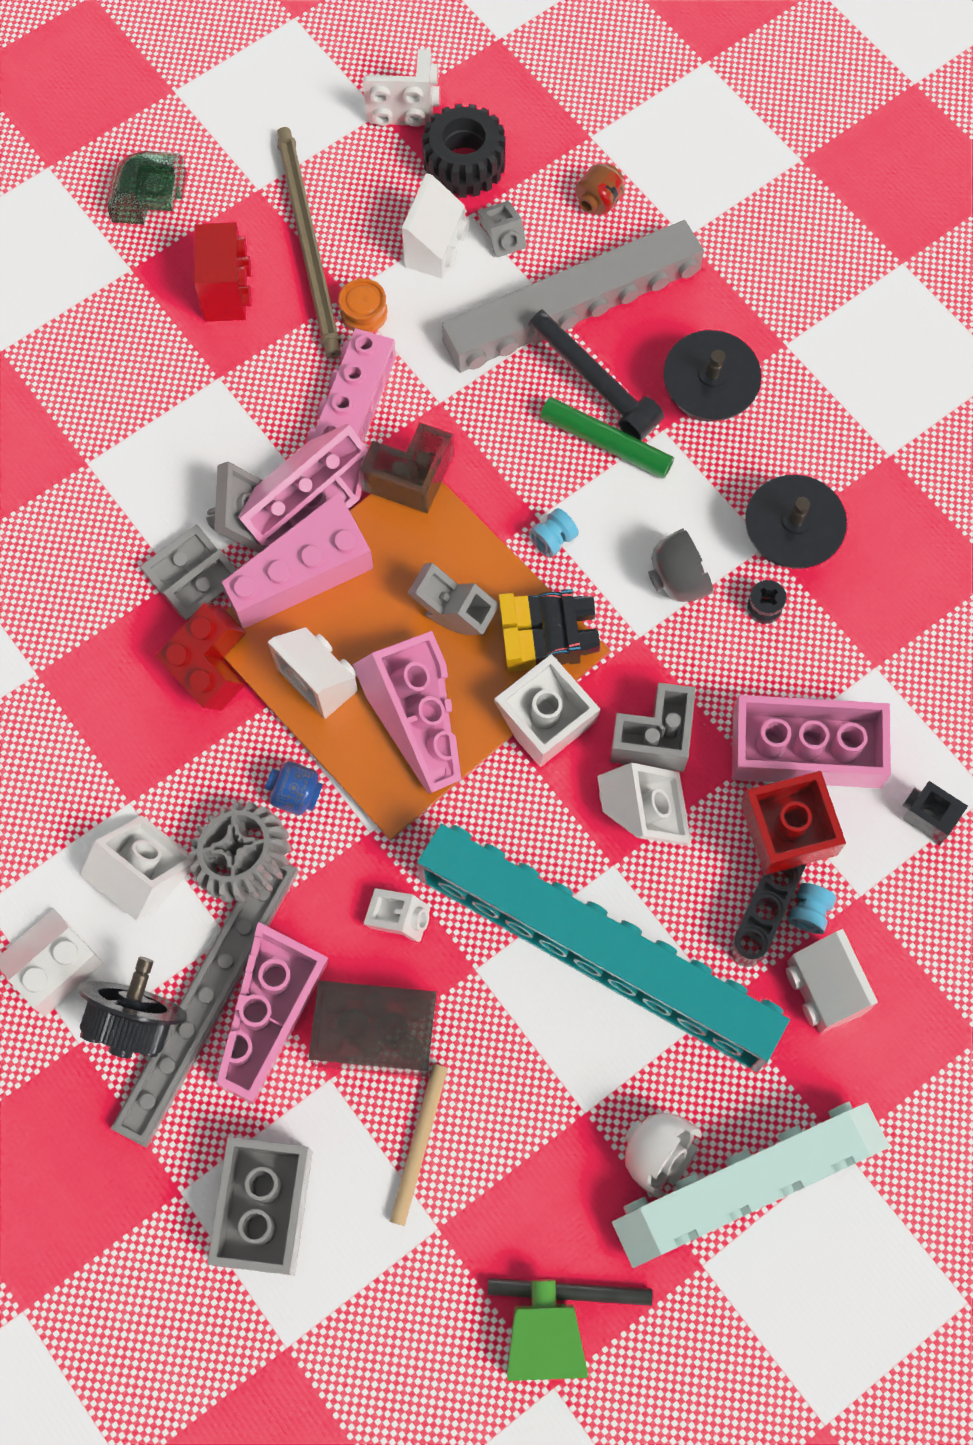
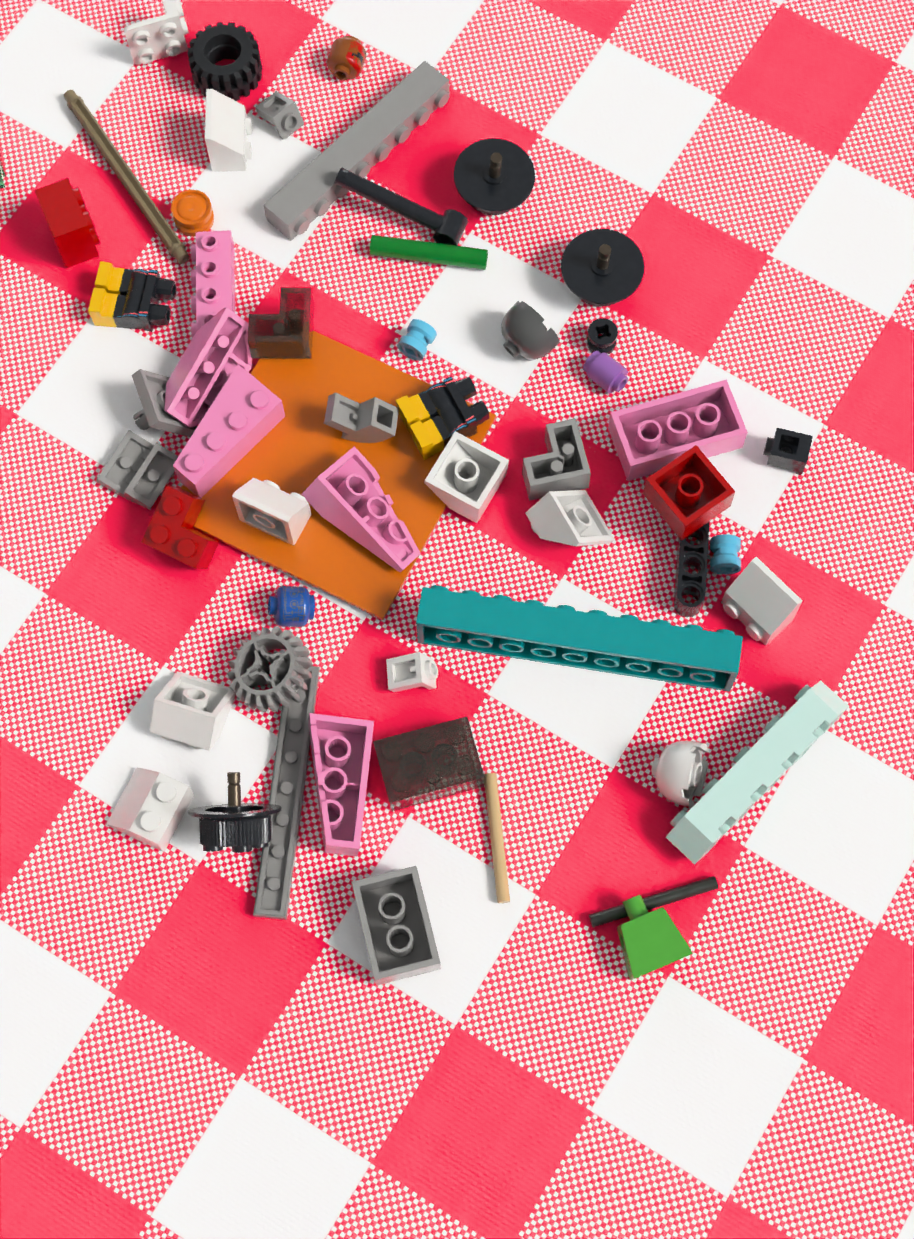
camera: 20 degrees left, 0 degrees up
(257, 377) = (130, 298): none -> black hips
(755, 644) = (606, 372): none -> medium lavender brick

